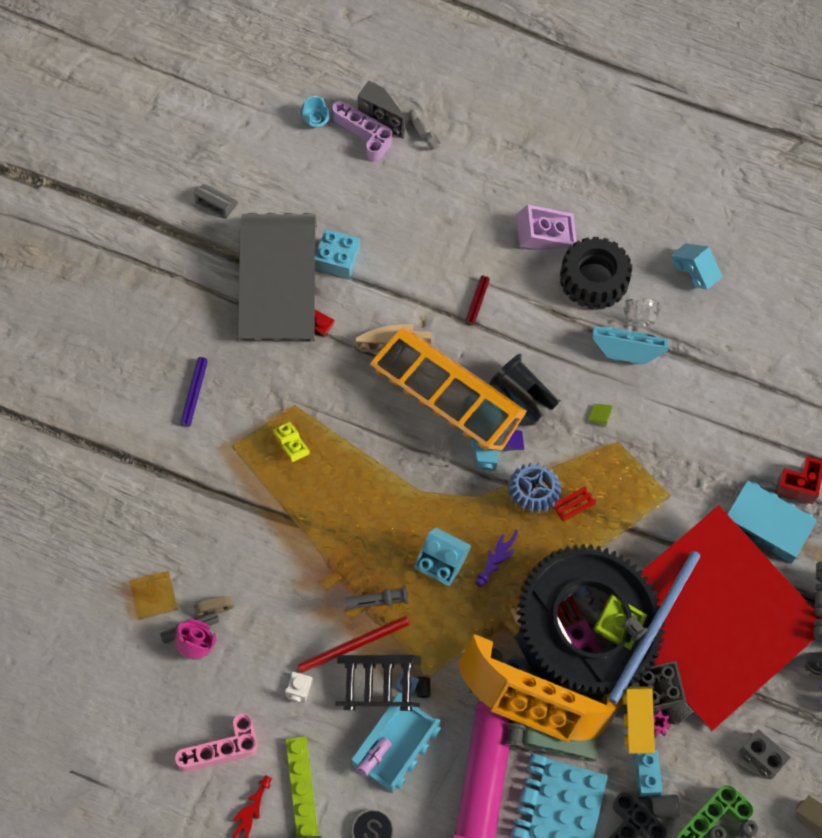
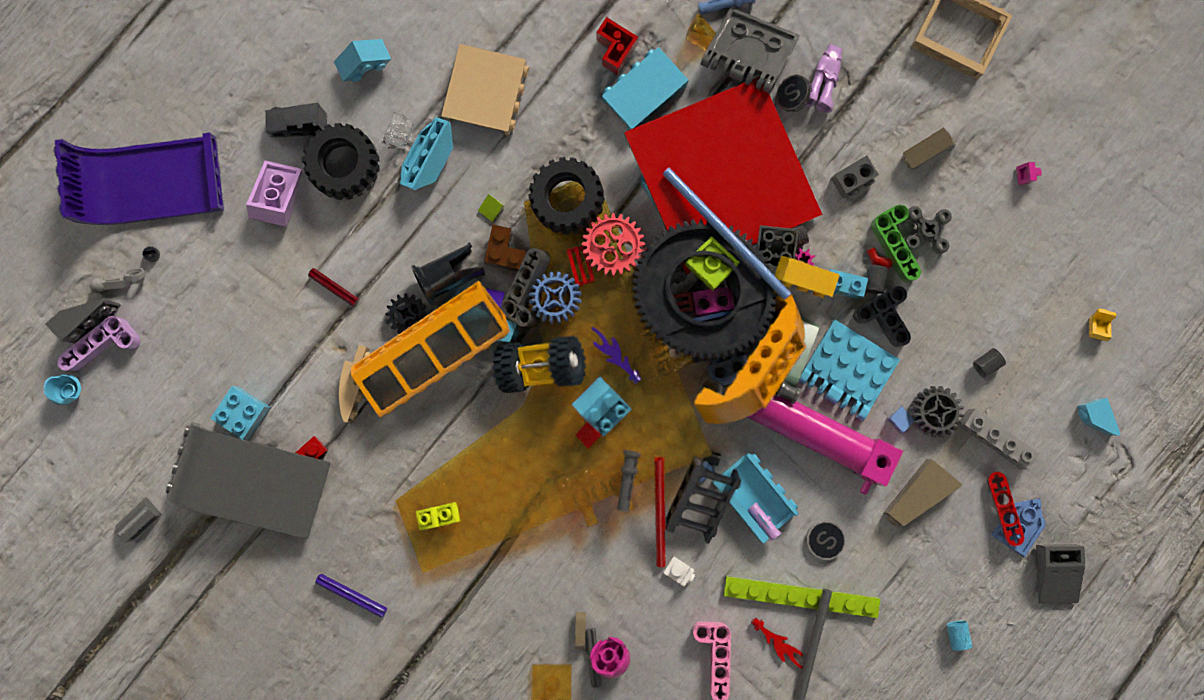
camera: 75 degrees left, 20 degrees up
(410, 552) = (588, 435): none -> red slope
(453, 149) = (151, 257): none -> black hinge
(471, 499) = (523, 366): none -> black plate
(483, 365) = (409, 306): none -> black gear
(512, 457) = (536, 262): none -> dark grey beam
(517, 120) = (138, 181): none -> dark purple panel
(562, 431) = (499, 251): none -> reddish brown brick
(590, 513) = (598, 252): none -> coral gear
(619, 226) = (295, 120): none -> black wedge
(632, 623) = (726, 253): dark grey bush -> none
(643, 450) = (557, 173): none -> black tyre
(686, 803) = (878, 260): none -> red arm
(712, 377) = (485, 88): none -> tan panel

